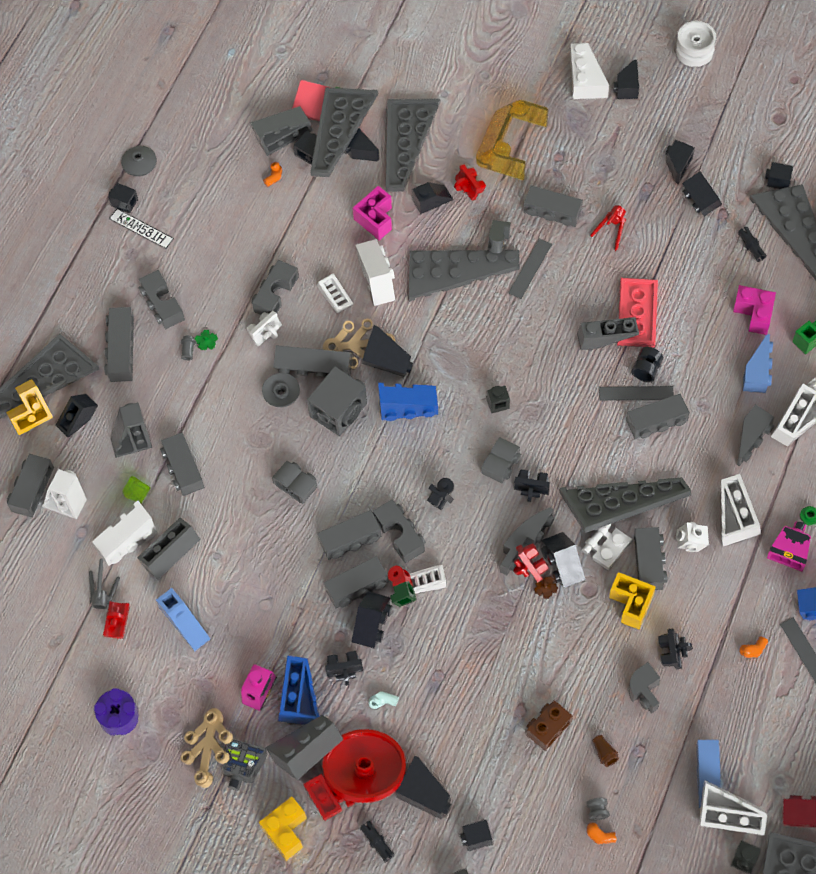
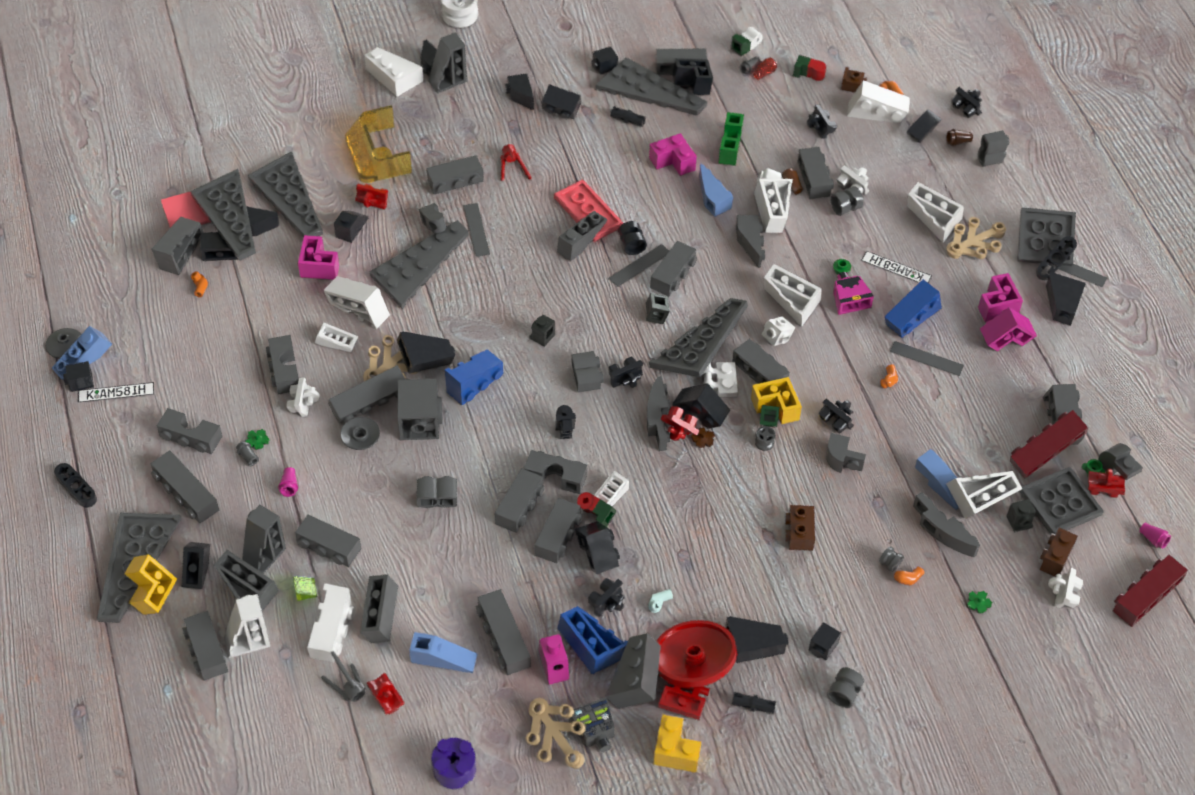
camera: 45 degrees left, 10 degrees down
(55, 294) = (77, 492): none -> black beam
(94, 456) = (245, 579): none -> dark grey wedge
(144, 178) = (87, 347): none -> medium blue slope
(195, 394) = (288, 484): none -> dark pink cone
(242, 636) = (504, 632): none -> dark grey brick
(596, 621) = (761, 435): none -> dark grey wheel
(606, 753) = (858, 517): reddish brown cone -> none
(608, 610) = (769, 416): none -> dark green leg
(610, 444) = (657, 308): none -> pearl dark grey brick
(632, 97) = (449, 64): none -> dark grey wedge
(670, 823) = (949, 532): none -> dark grey slope

